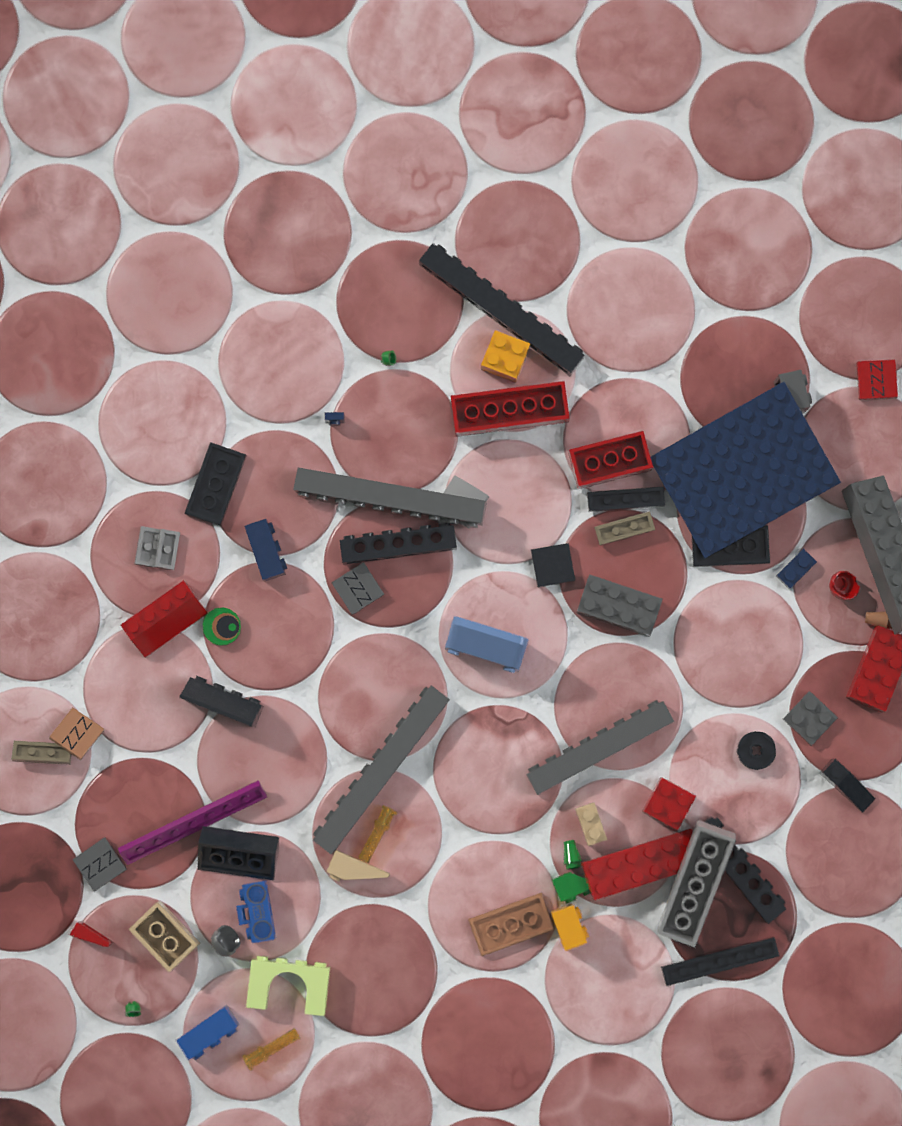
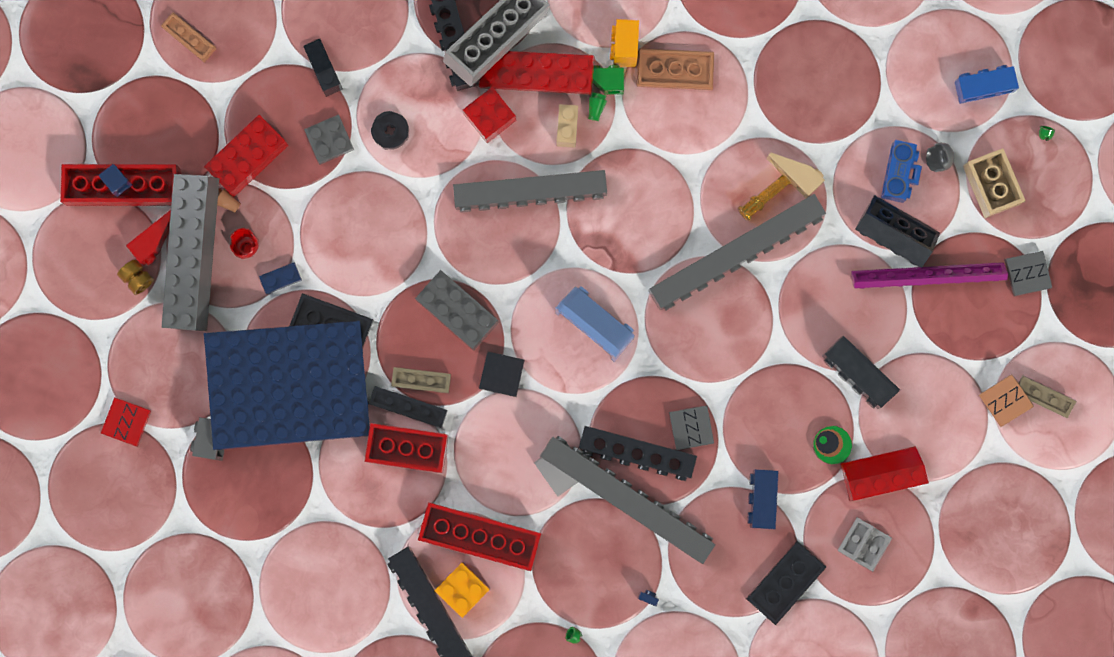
camera: 160 degrees left, 0 degrees up
(87, 933) = (1061, 213): red slope -> none
(263, 1053) = (942, 47): clear yellow pin -> none
(315, 977) = (913, 117): yellowish green arch -> none

